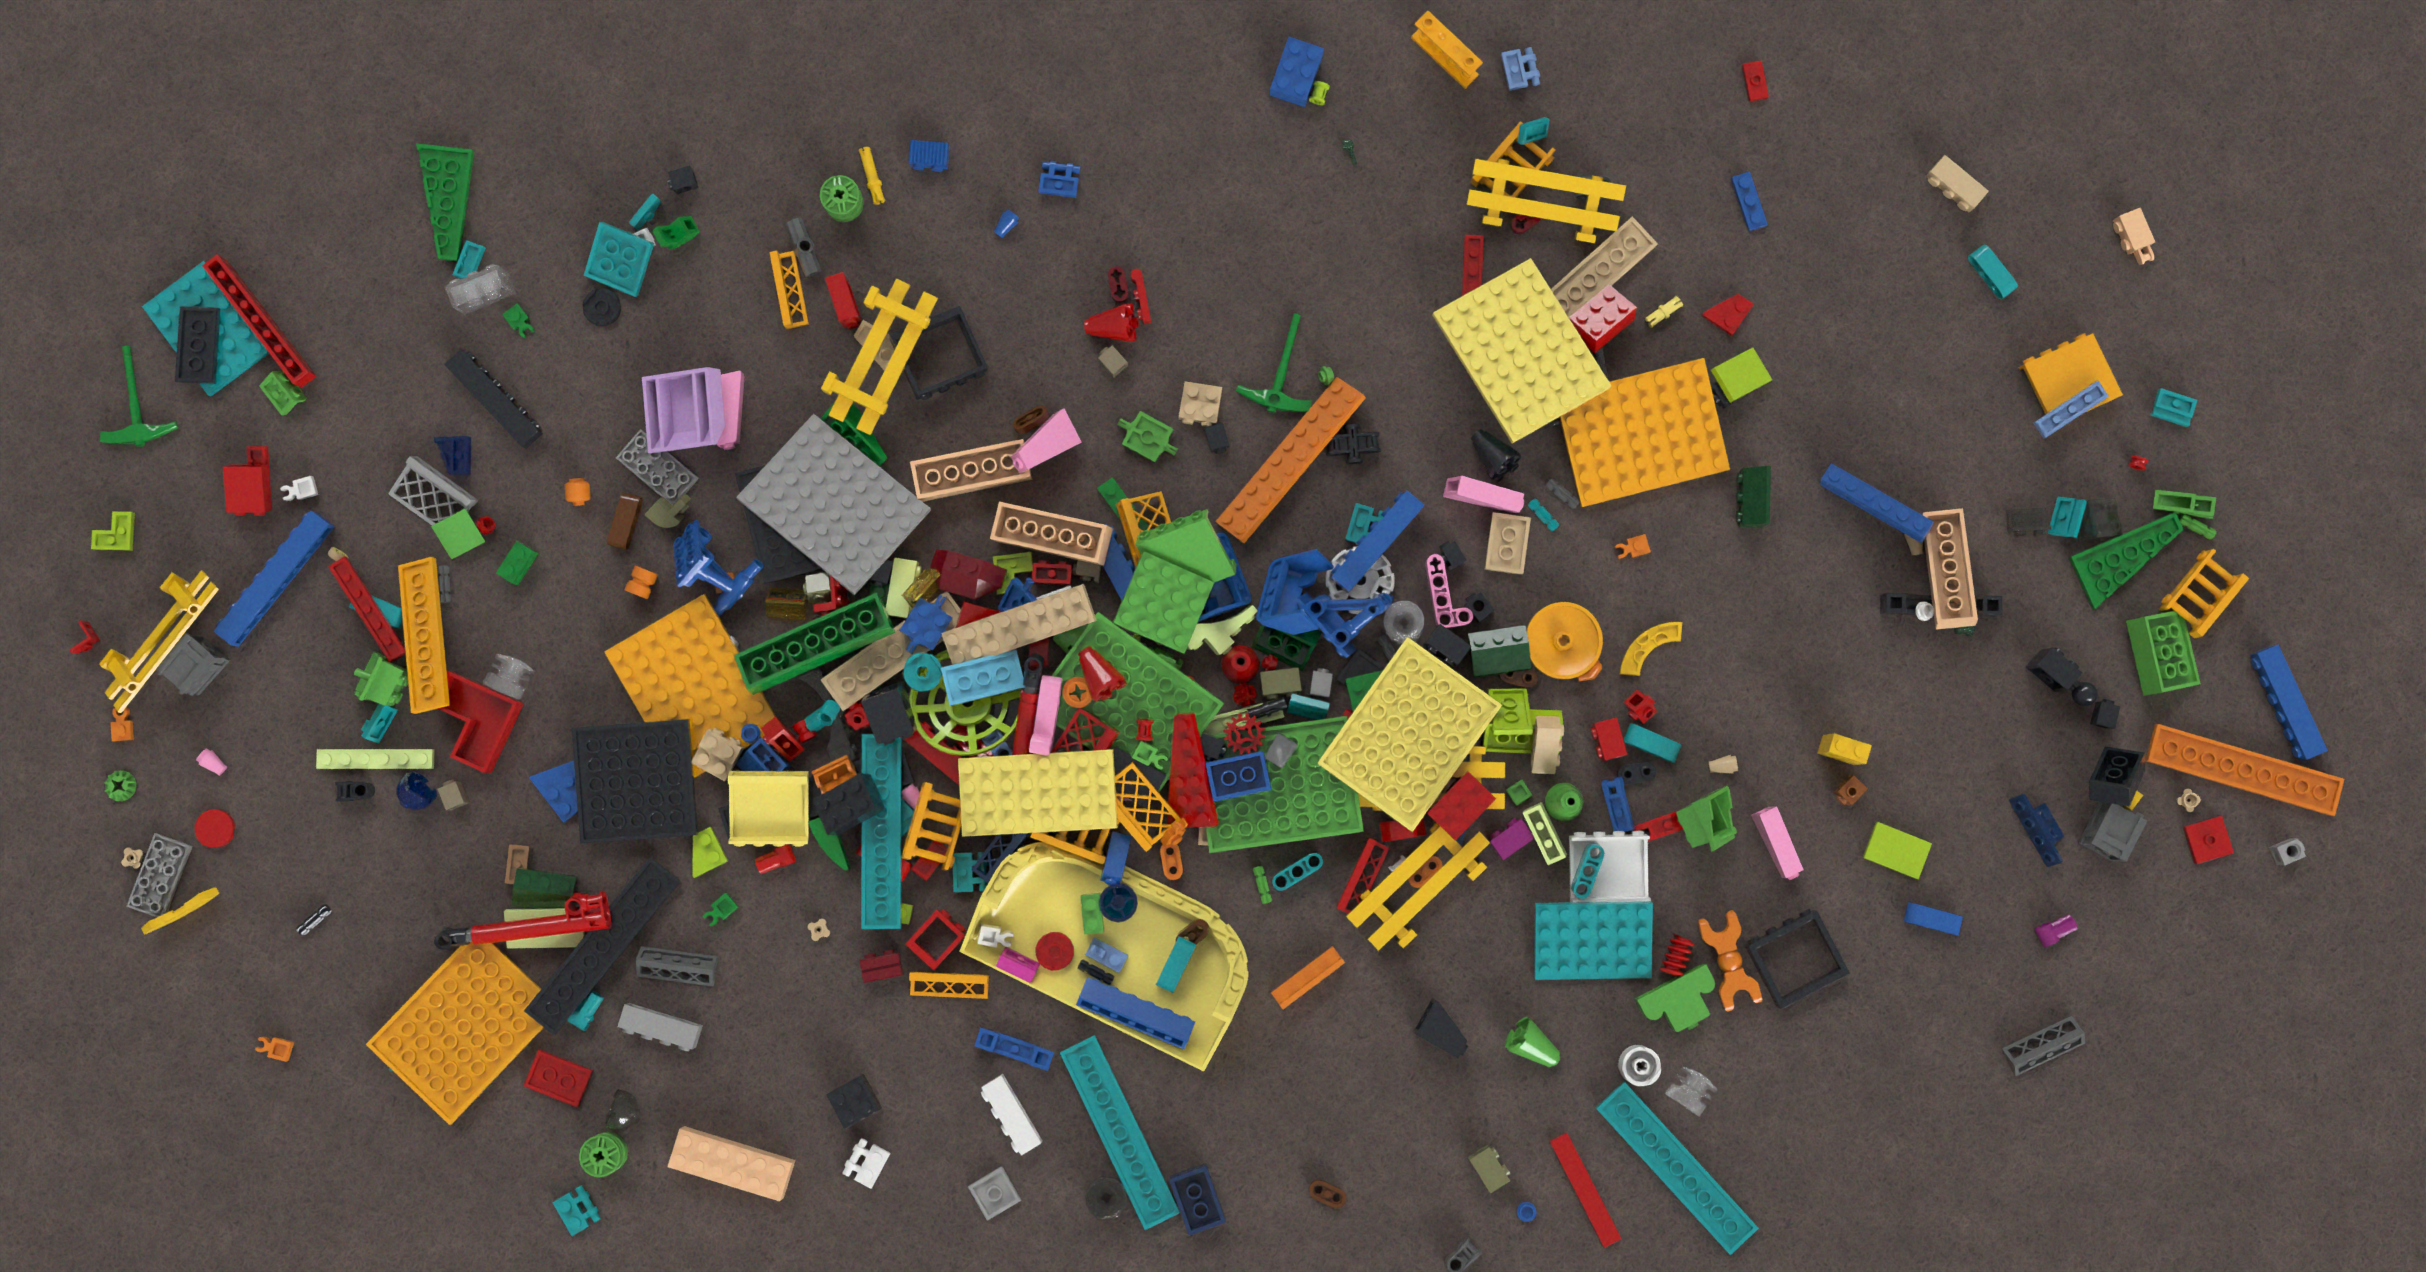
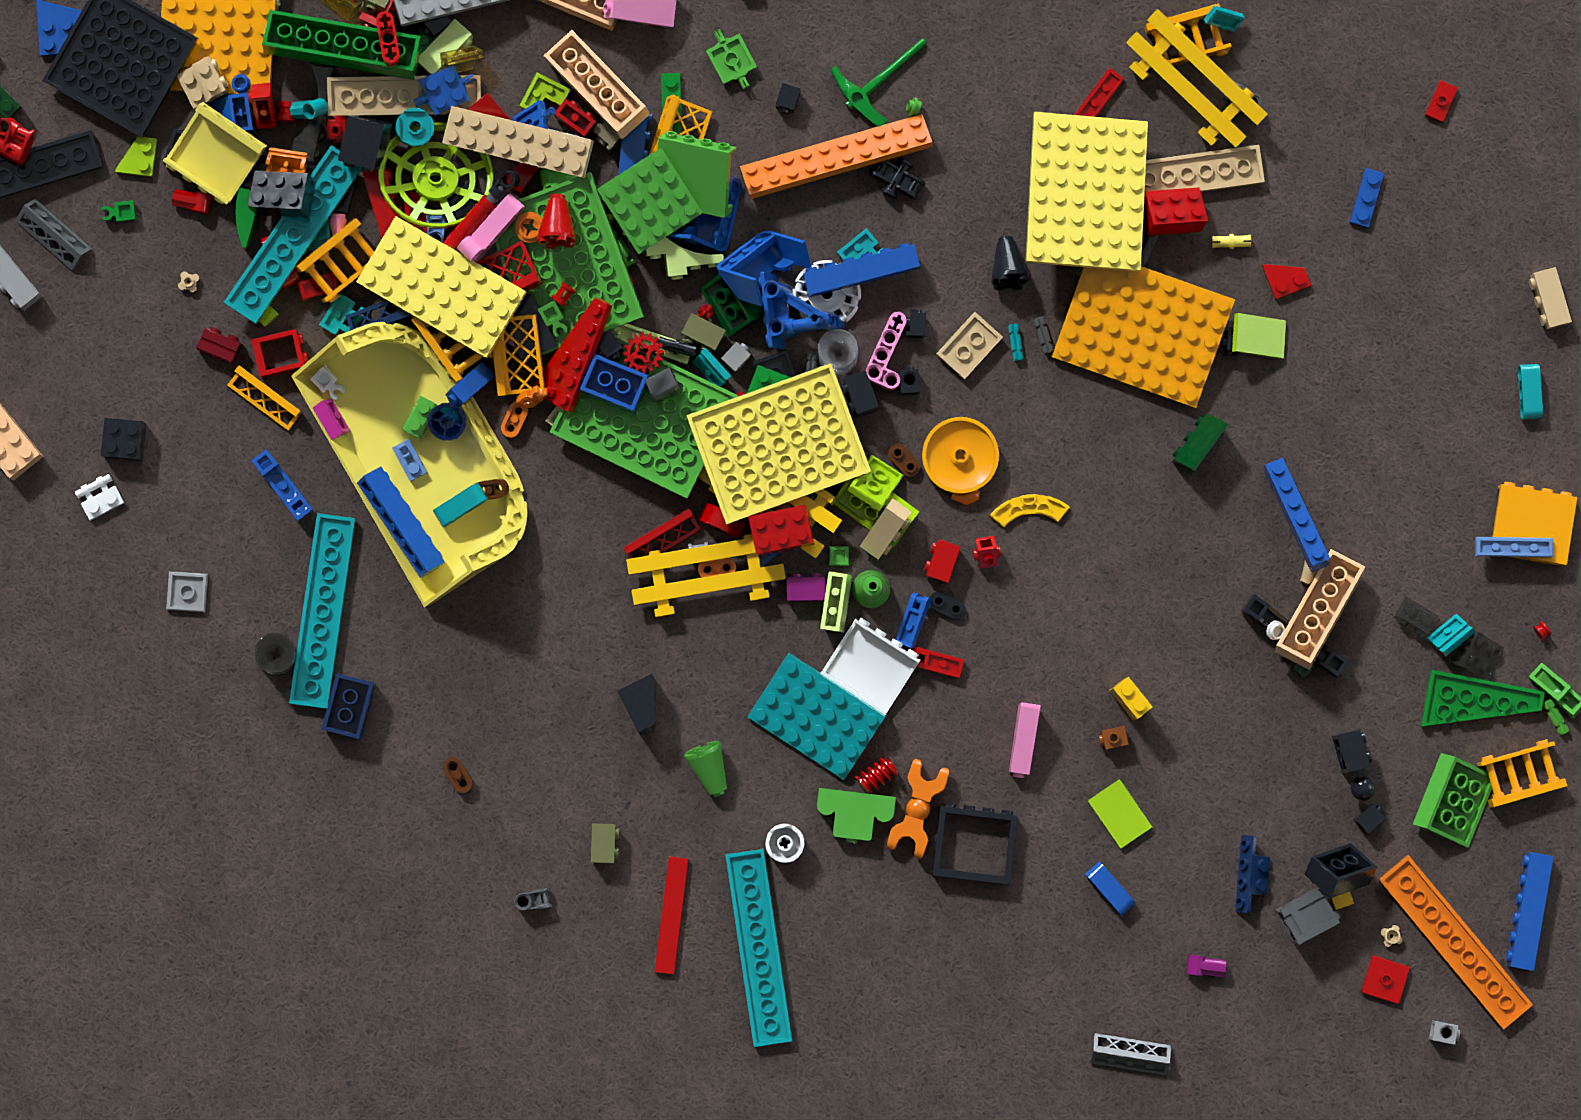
camera: 25 degrees right, 0 degrees up
(850, 621) = (394, 44): none -> red beam
(966, 574) = (505, 72): dark red wedge -> none
(983, 677) = (460, 164): medium azure plate -> none
(1012, 1115) = (244, 536): white brick -> none
(1054, 951) = (369, 428): red tile -> none
(1095, 972) = (391, 468): black axle -> none
(1200, 404) = (793, 61): tan plate -> none
(1236, 672) = (680, 304): red cone -> none
(1244, 694) = (666, 324): red gear -> none
(1262, 884) = (576, 489): bright green axle -> none
(1307, 870) = (604, 491): teal beam -> none
(1307, 977) = (561, 589): orange fence -> none
(1483, 494) = (977, 292): bright pink slope -> none
(1499, 651) = (901, 428): dark green slope -> none
(1526, 1211) = (611, 900): blue plate -> none
(1529, 223) = (1166, 94): dark red beam -> none
(1587, 860) = (843, 661): teal beam -> none
(1635, 546) = (1074, 420): orange plate -> none
(1652, 742) = (976, 589): teal beam -> none
(1691, 1090) = (812, 891): clear wheel -> none
(1709, 819) = (979, 680): bright green piece -> none
(1724, 765) = (1024, 647): tan cone -> none

